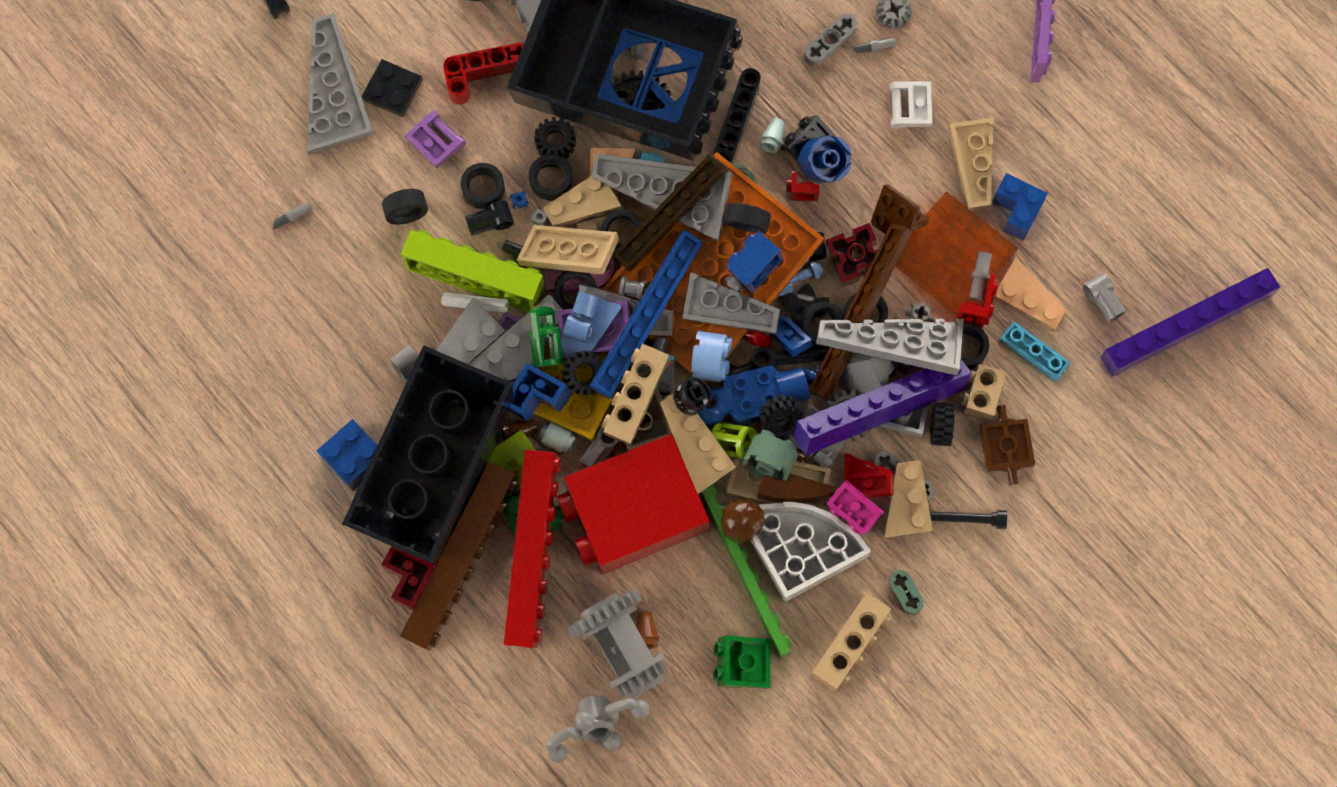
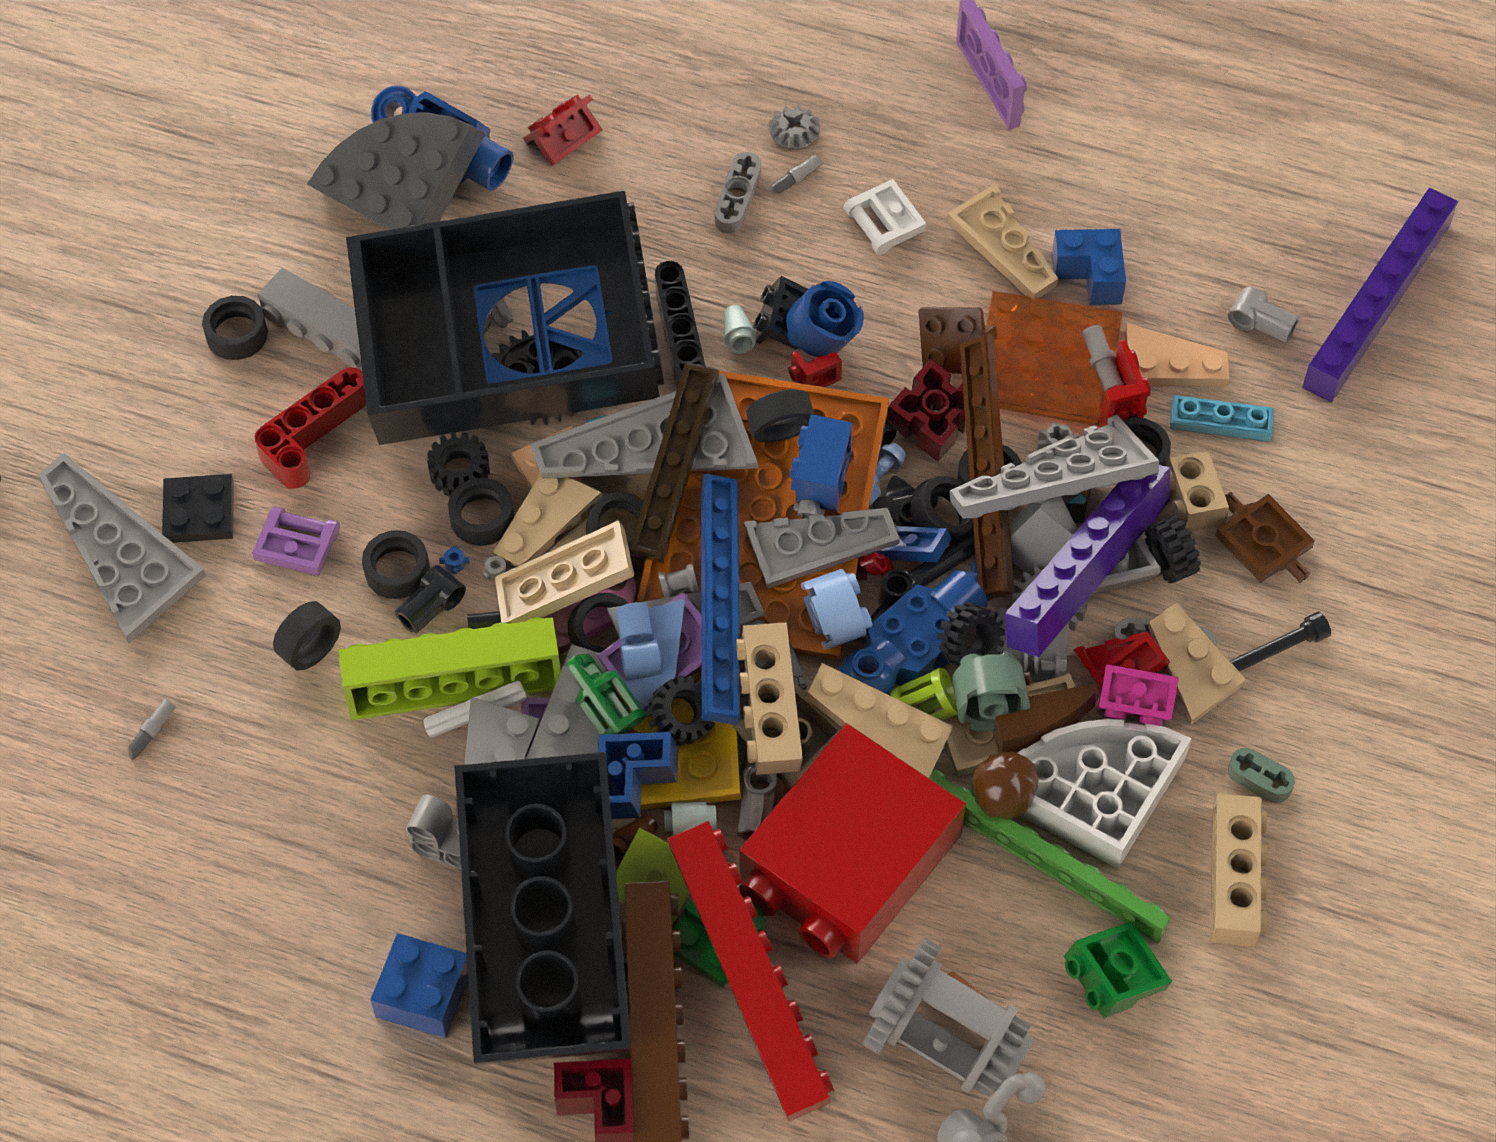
camera: 30 degrees left, 15 degrees down
(693, 394) = (847, 658): black wheel -> none

